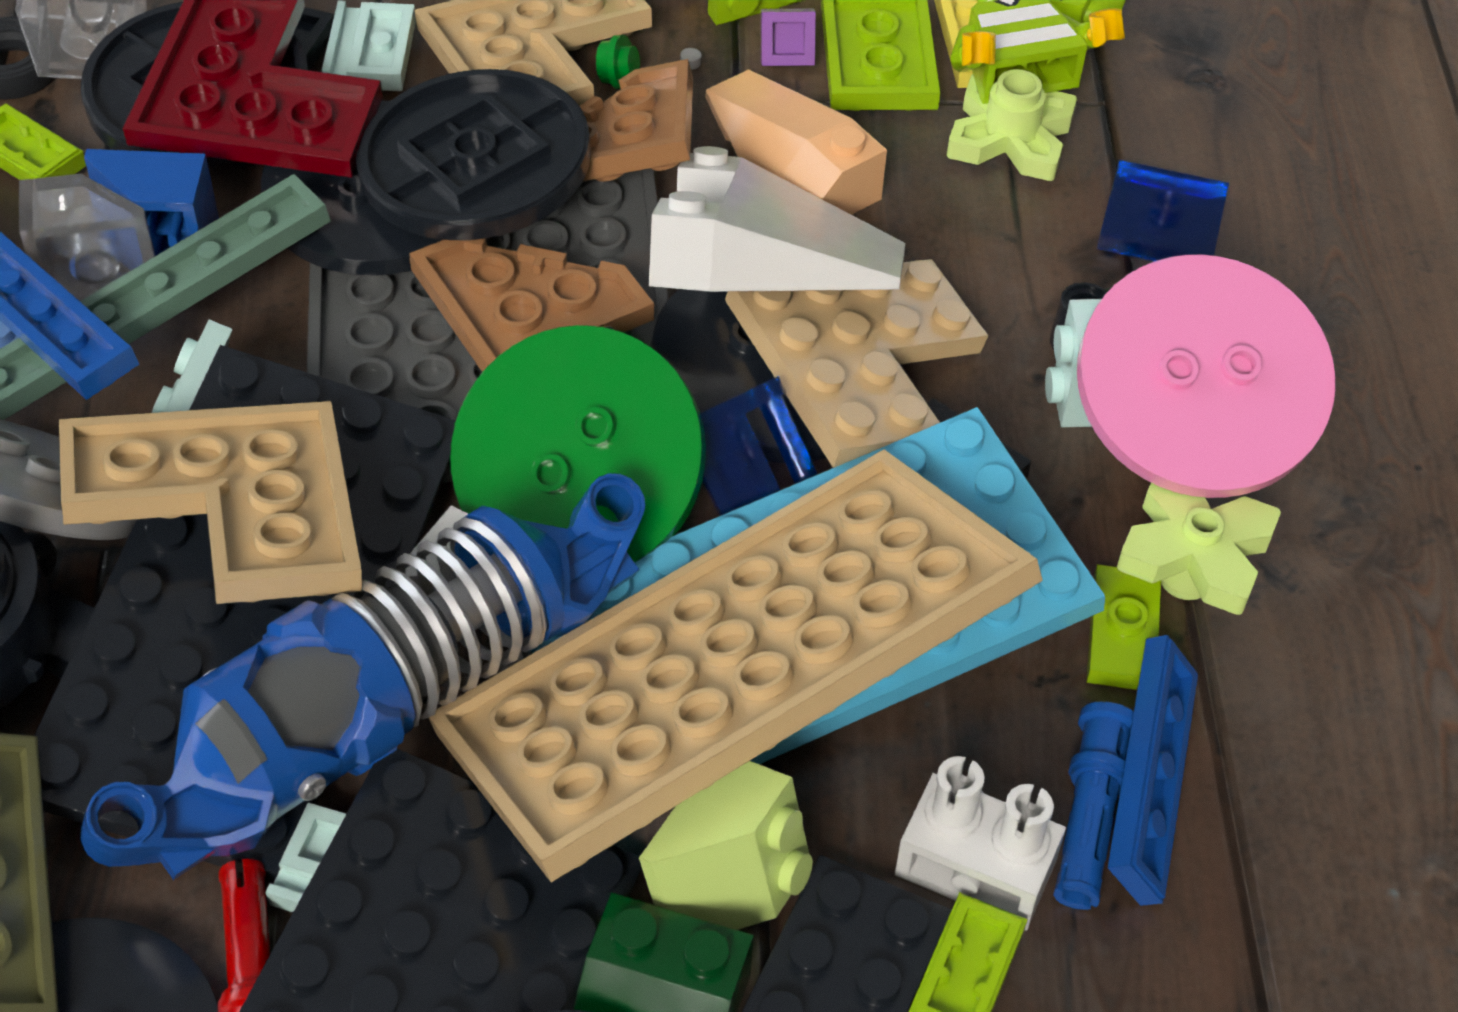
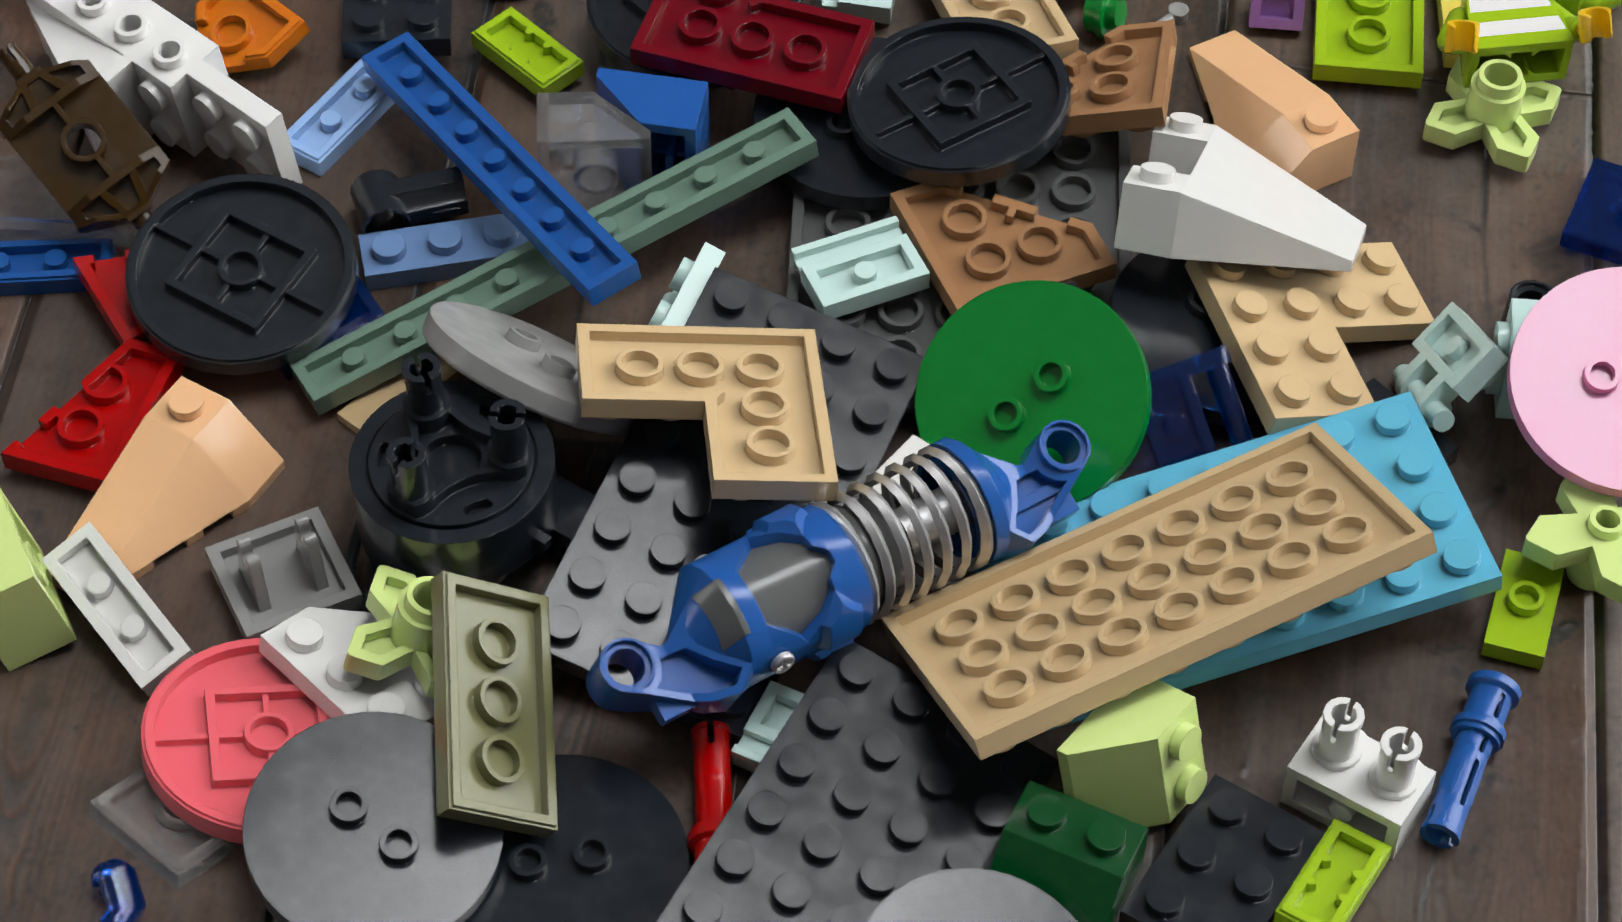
camera: 10 degrees right, 0 degrees up
(382, 333) = (860, 268): none -> light aqua plate
(1012, 372) = (1451, 362): none -> light aqua plate
(1153, 772) = (1527, 735): blue tile -> none

